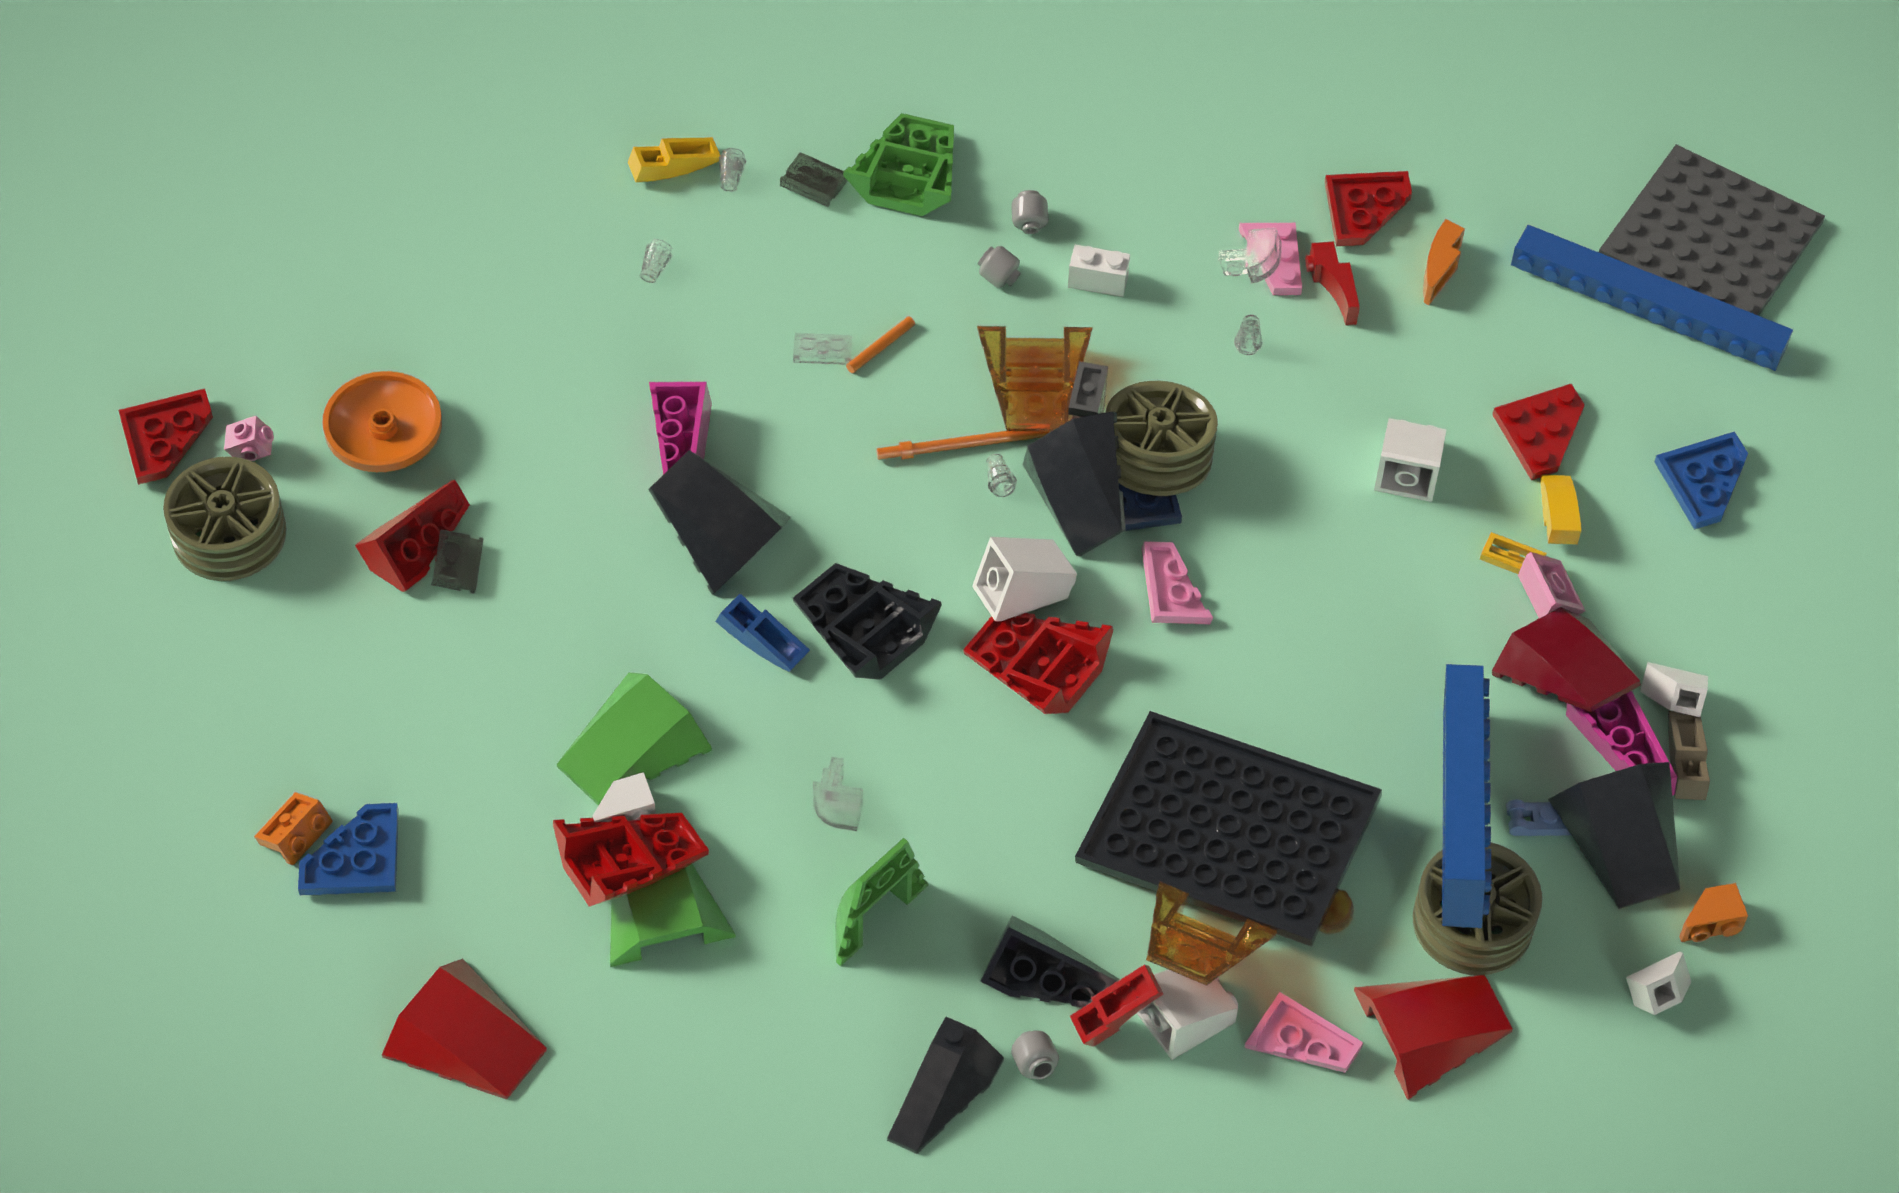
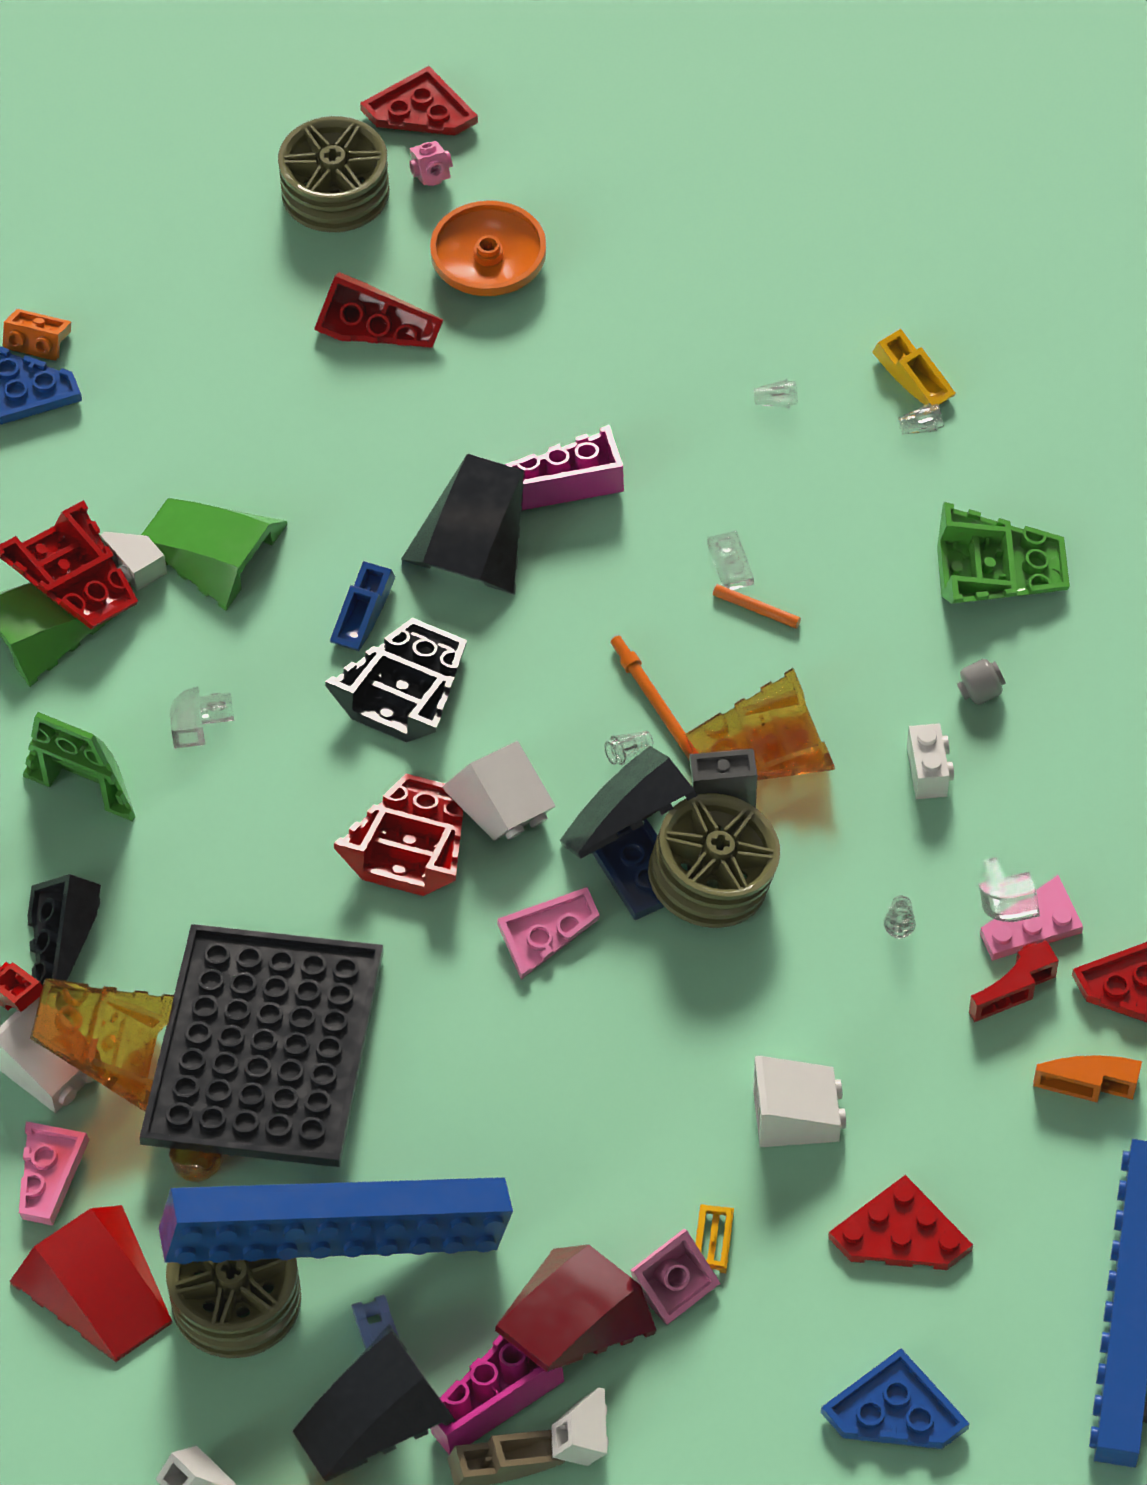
camera: 75 degrees right, 0 degrees up
(457, 561) = (359, 355): clear smoke plate -> none
(813, 179) = (940, 485): clear smoke plate -> none
(999, 266) = (895, 674): light grey head -> none
(1560, 509) = (790, 1266): yellow slope -> none

